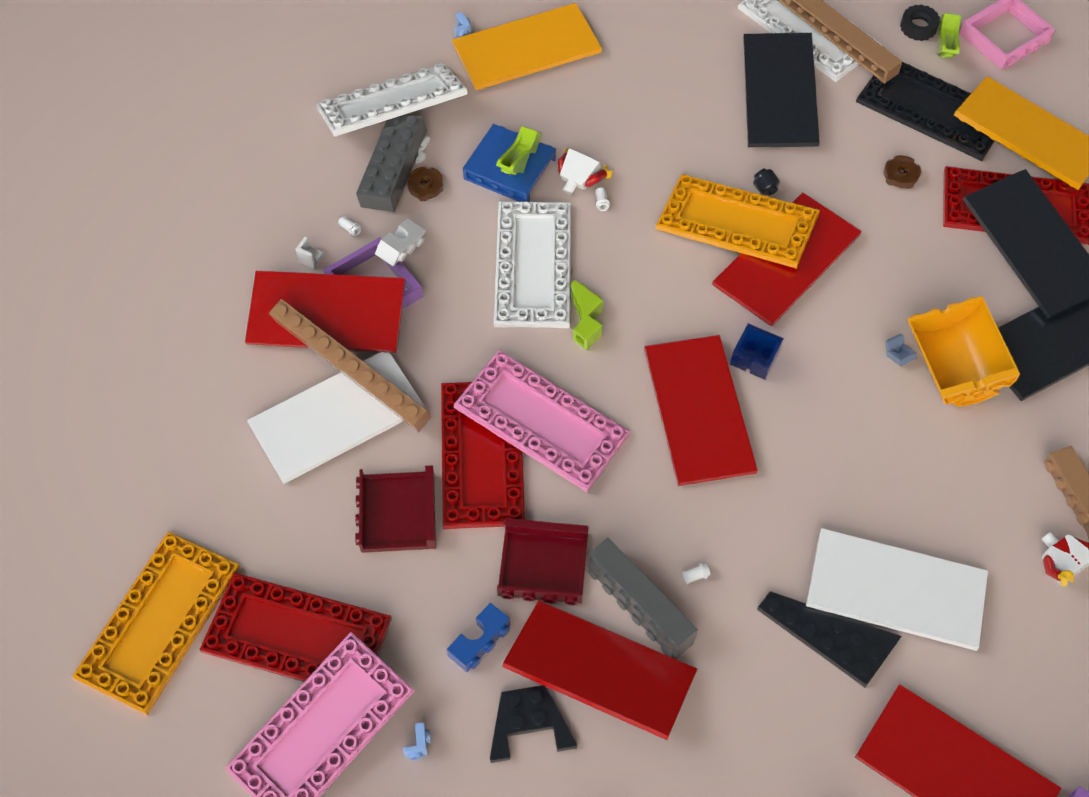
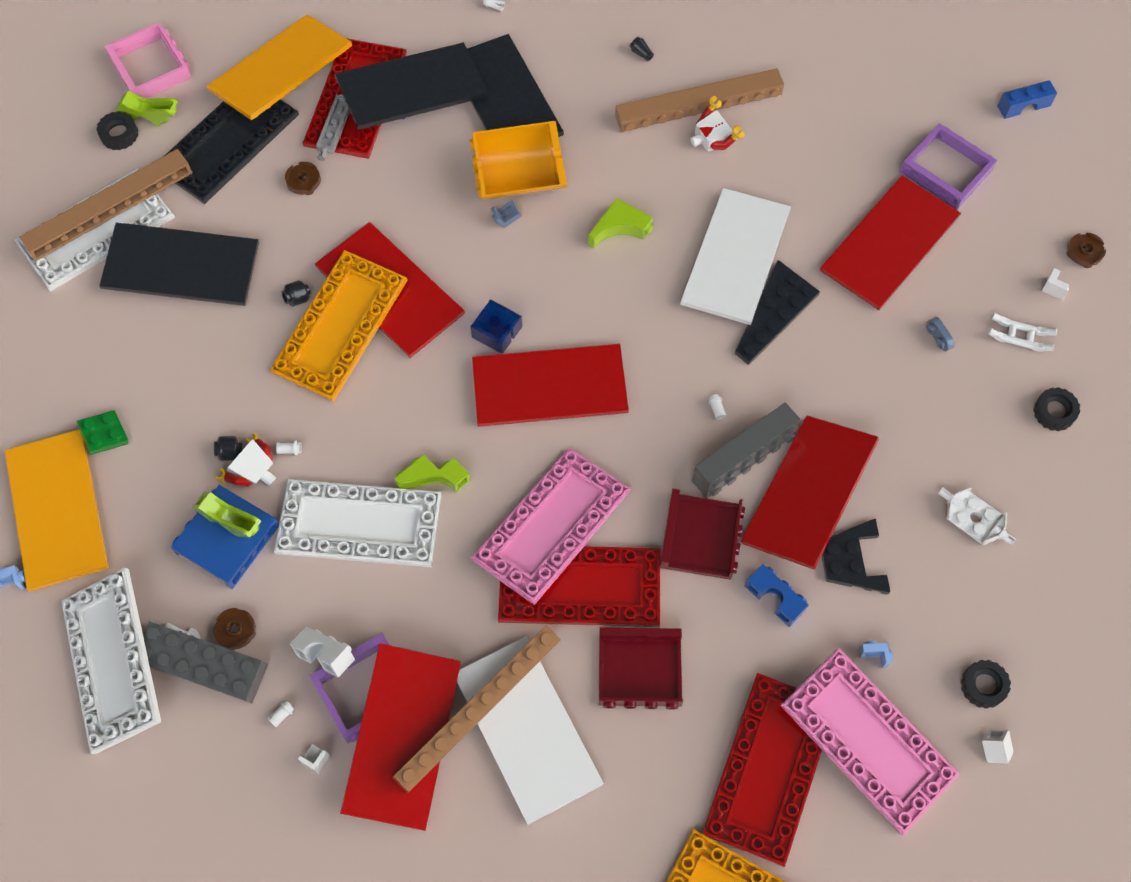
camera: 85 degrees left, 5 degrees up
(596, 150) = (227, 448): none -> black head
(600, 63) = (102, 432): none -> green plate
(916, 461) = (621, 220): none -> lime arch
(956, 182) = (333, 127): none -> light grey plate

